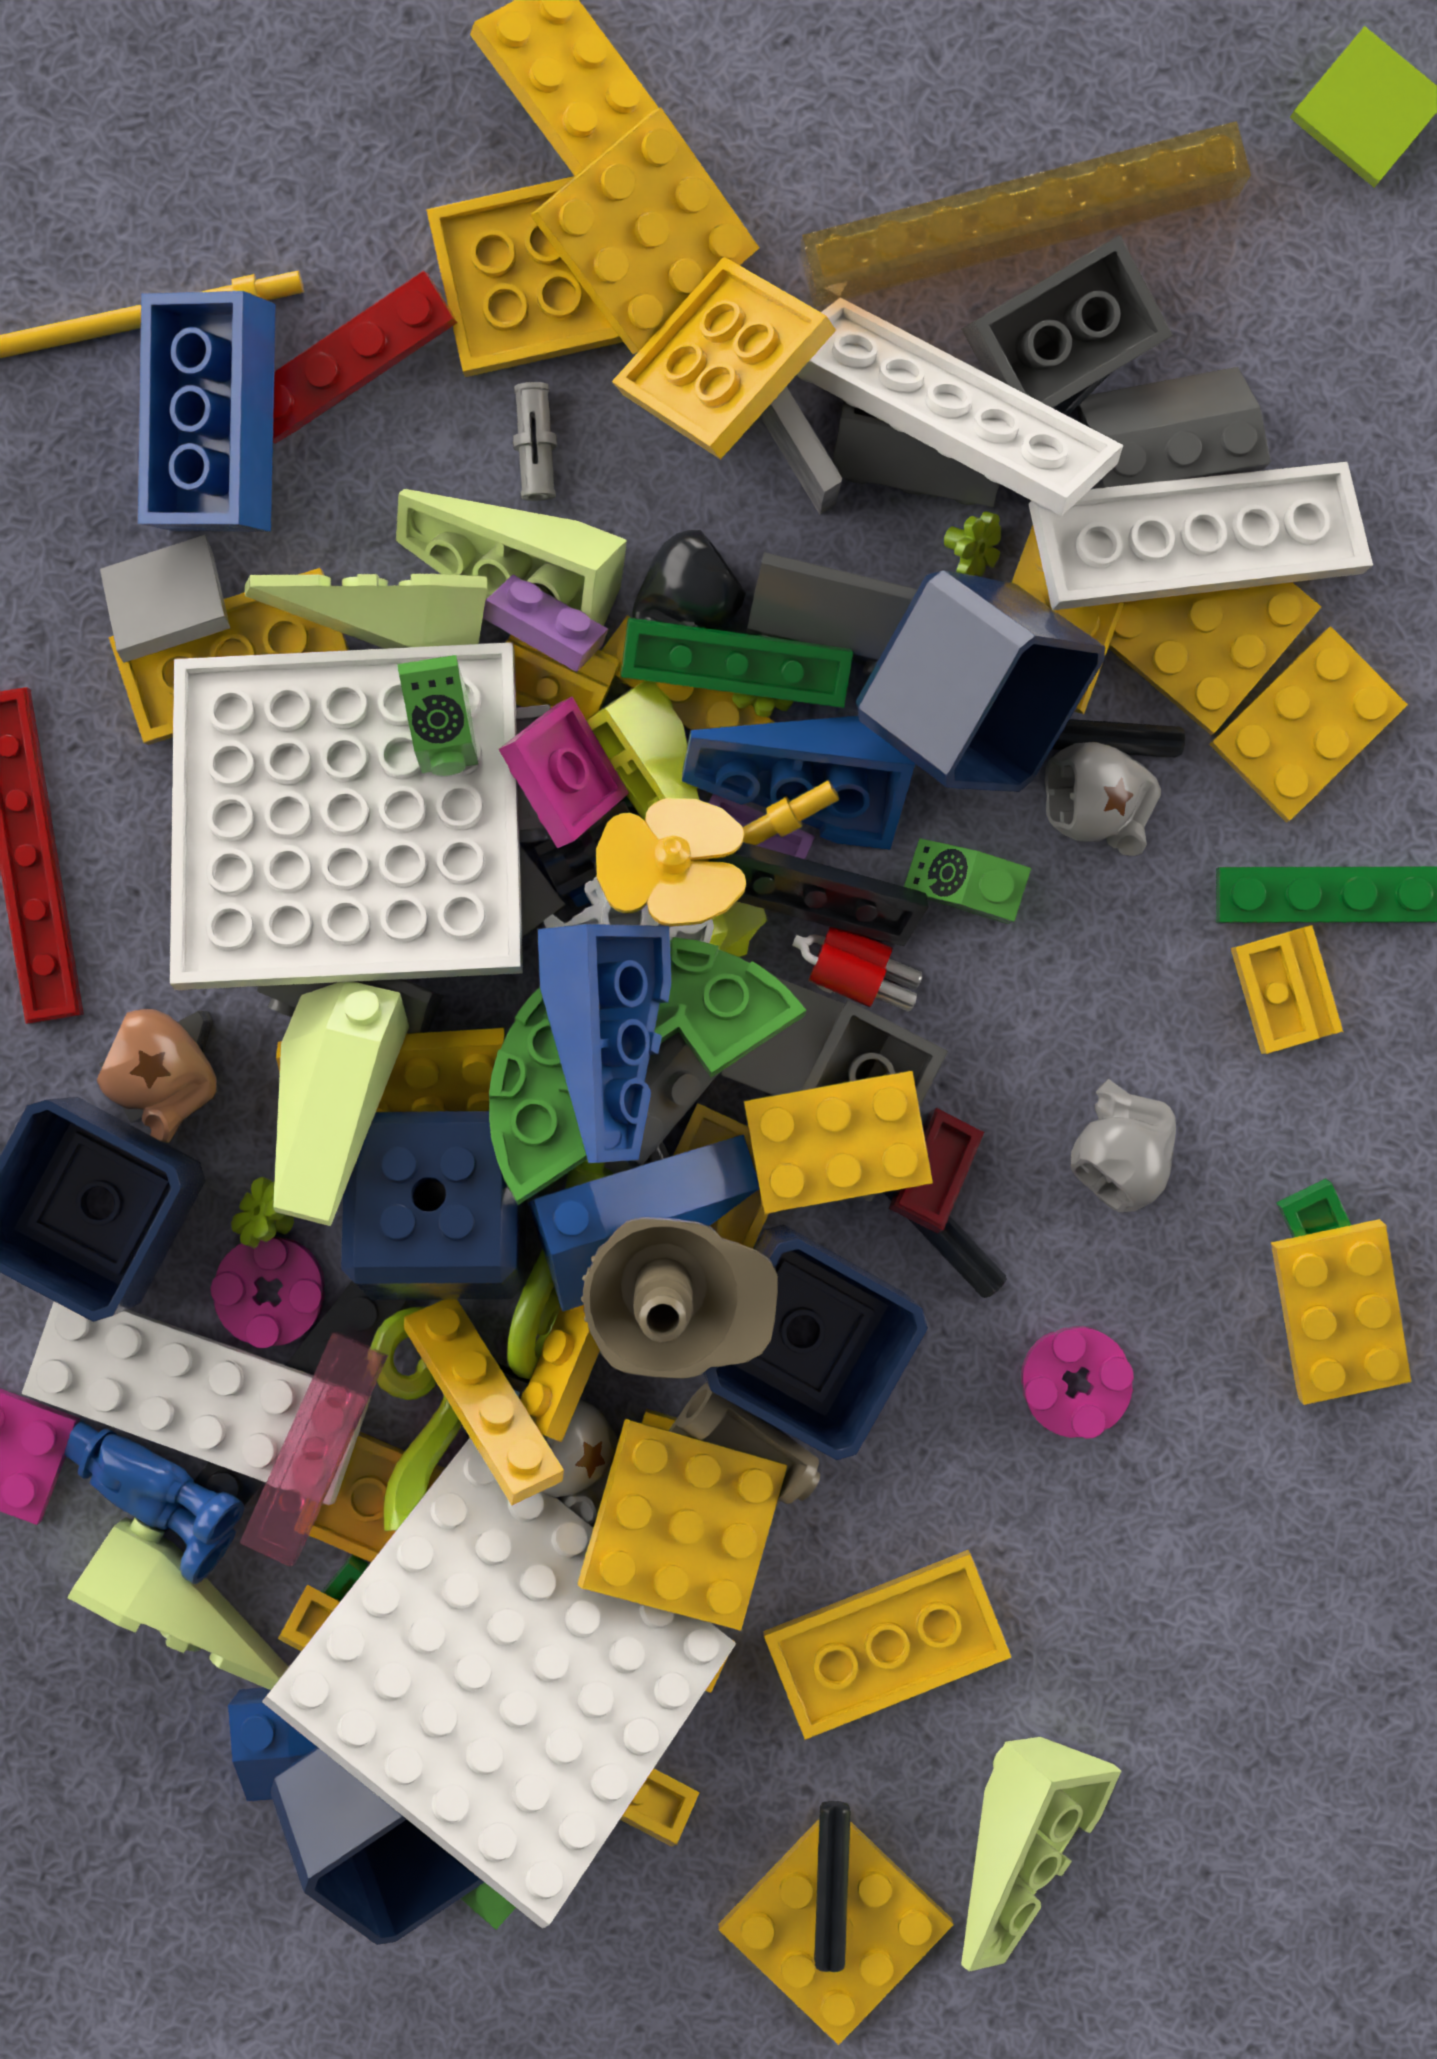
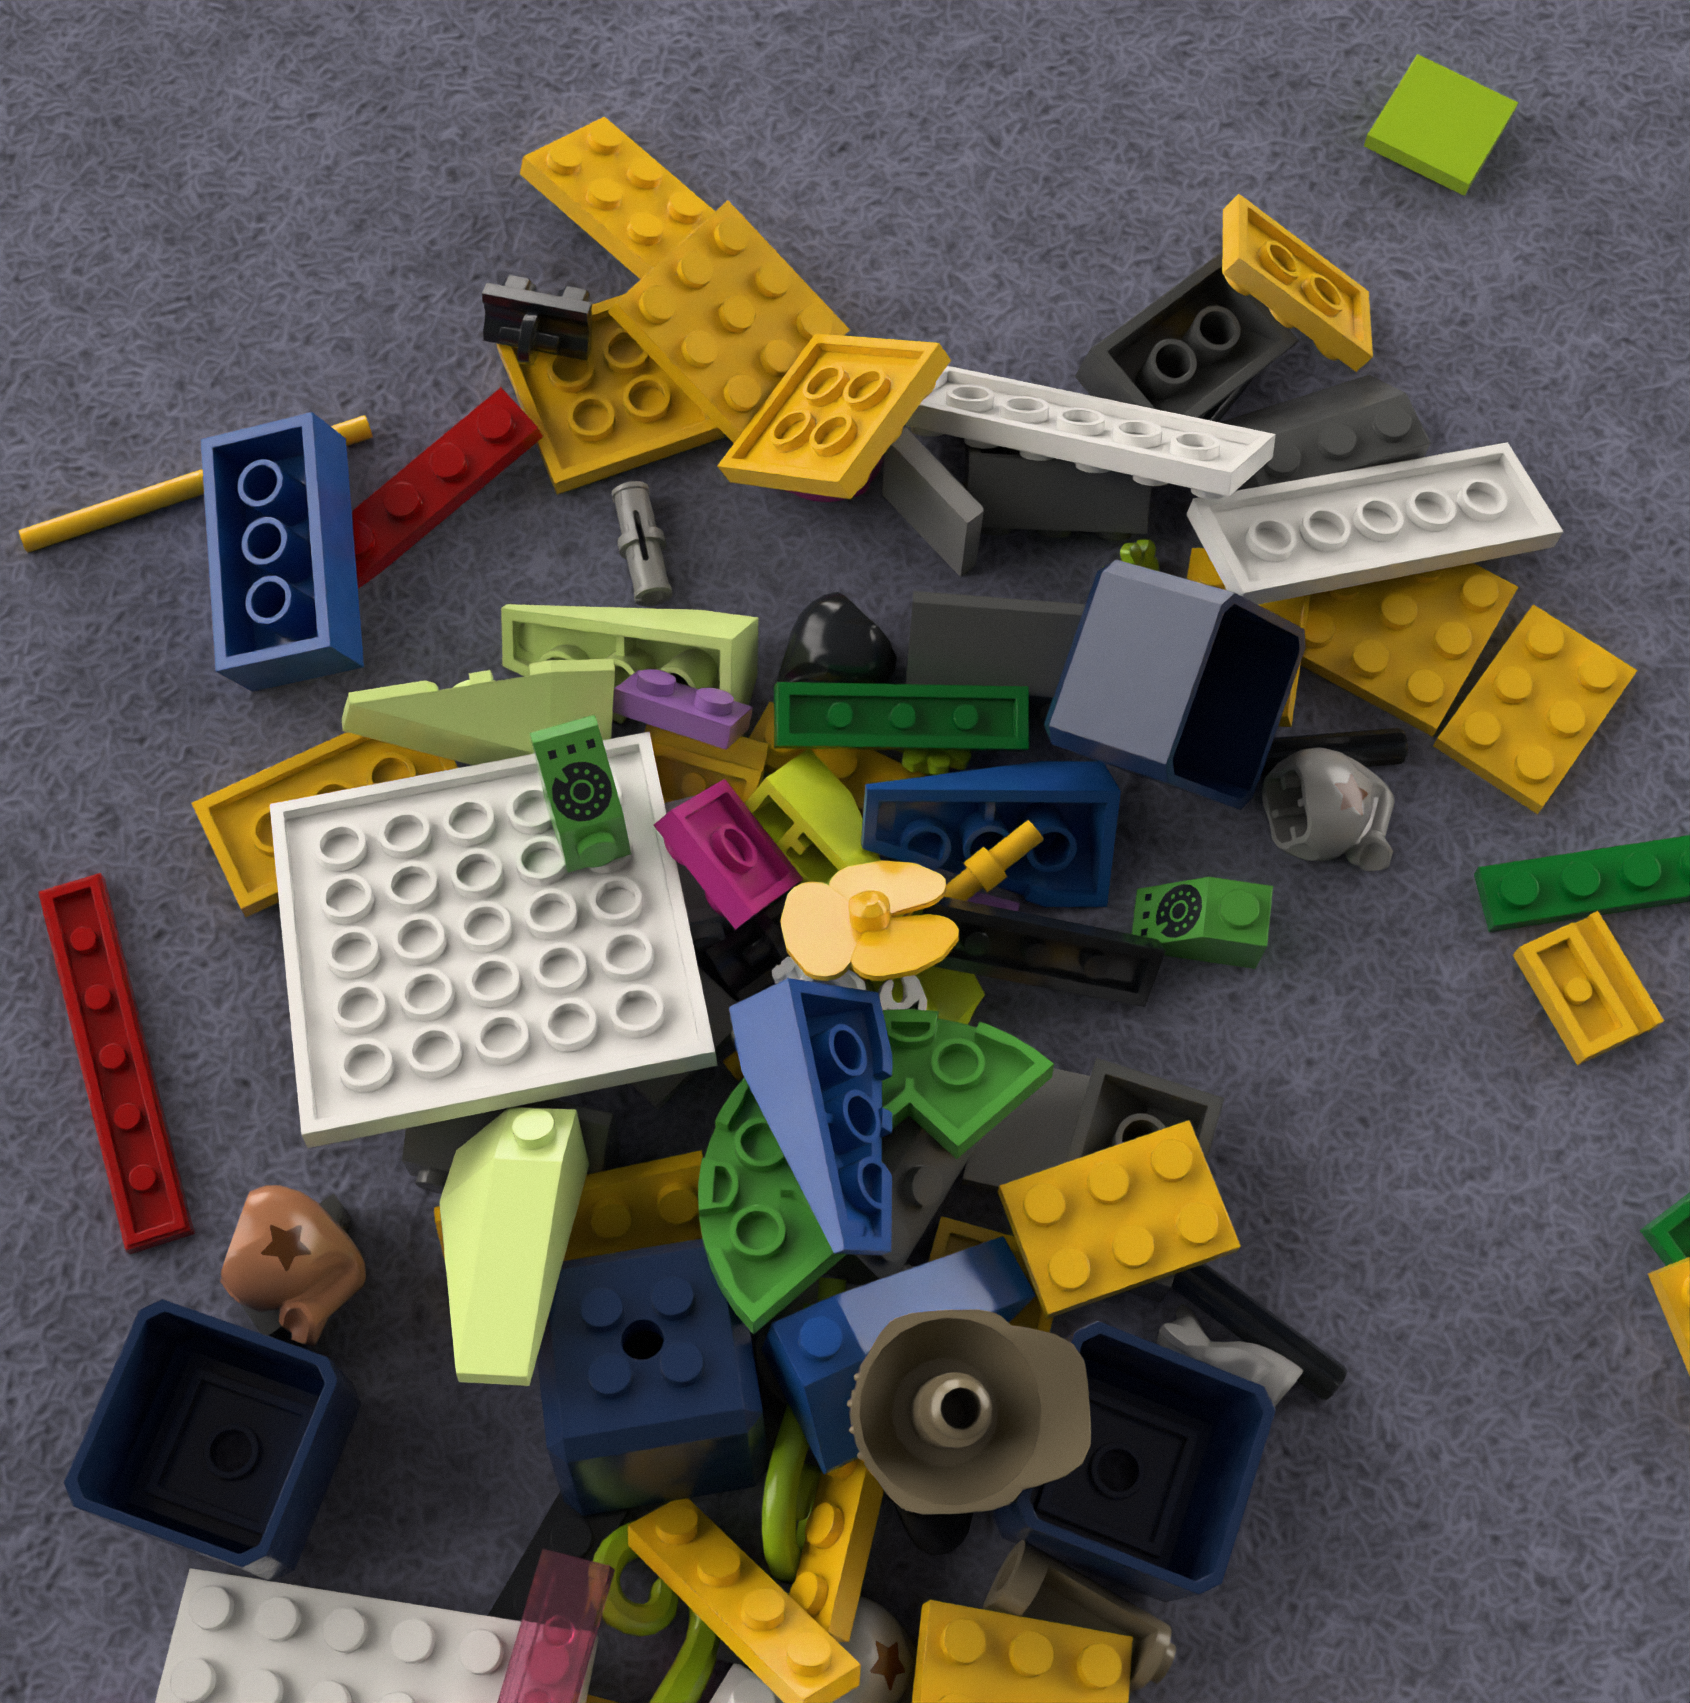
camera: 15 degrees left, 20 degrees down
(164, 598) = (251, 753): light grey tile -> none
(259, 1218) = (436, 1432): lime plant -> none
(265, 1324) = (455, 1572): dark pink plate -> none
(465, 209) = (537, 320): none -> black hips
(856, 969) = (1099, 1030): red piece -> none
(914, 1267) = (1236, 1357): none -> light grey animal
(950, 1152) = (1239, 1281): dark red tile -> none
(1024, 214) = (1110, 259): clear yellow brick -> none
(1046, 1391) = (1425, 1502): dark pink plate -> none
(1127, 1150) = (1451, 1195): light grey piece -> none
(1183, 275) = (1296, 284): none -> yellow plate

